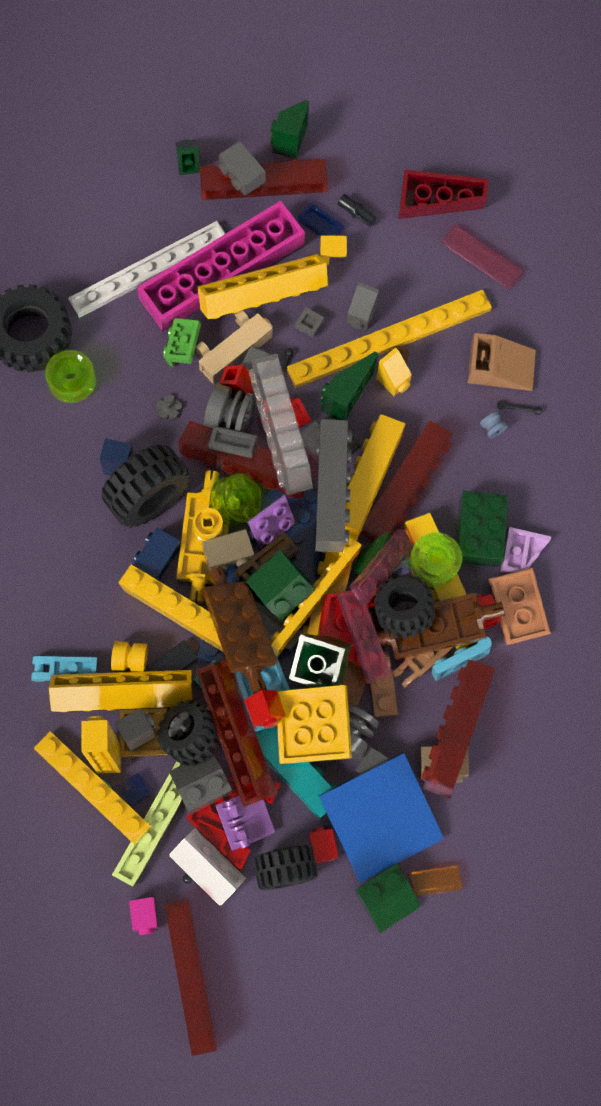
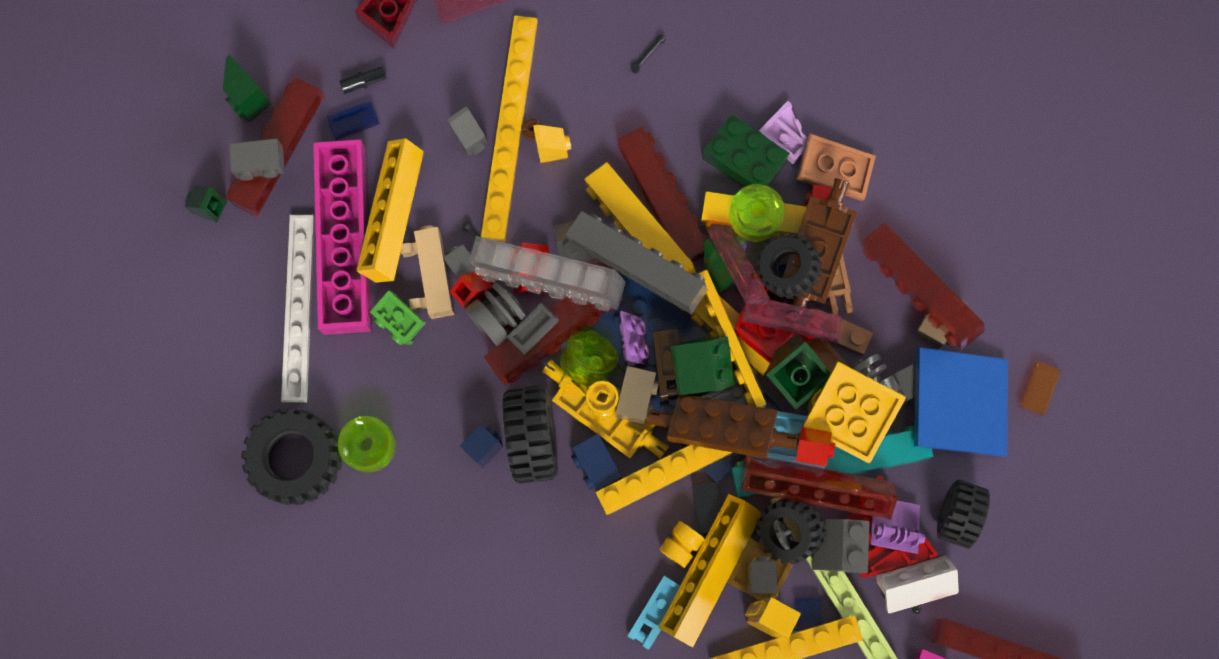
camera: 50 degrees left, 5 degrees up
(168, 407) = (453, 369): dark grey plant -> none
(309, 322) = (449, 190): dark grey plate -> none
(323, 844) = (955, 467): red brick -> none
(333, 247) = (388, 124): yellow panel -> none
(346, 387) = (544, 201): dark green slope -> none
(388, 898) = (1032, 439): dark green slope -> none
(445, 667) = (854, 244): medium azure plate -> none
(493, 425) = (653, 85): sand blue wheel -> none
(500, 363) = (597, 44): medium nougat slope -> none

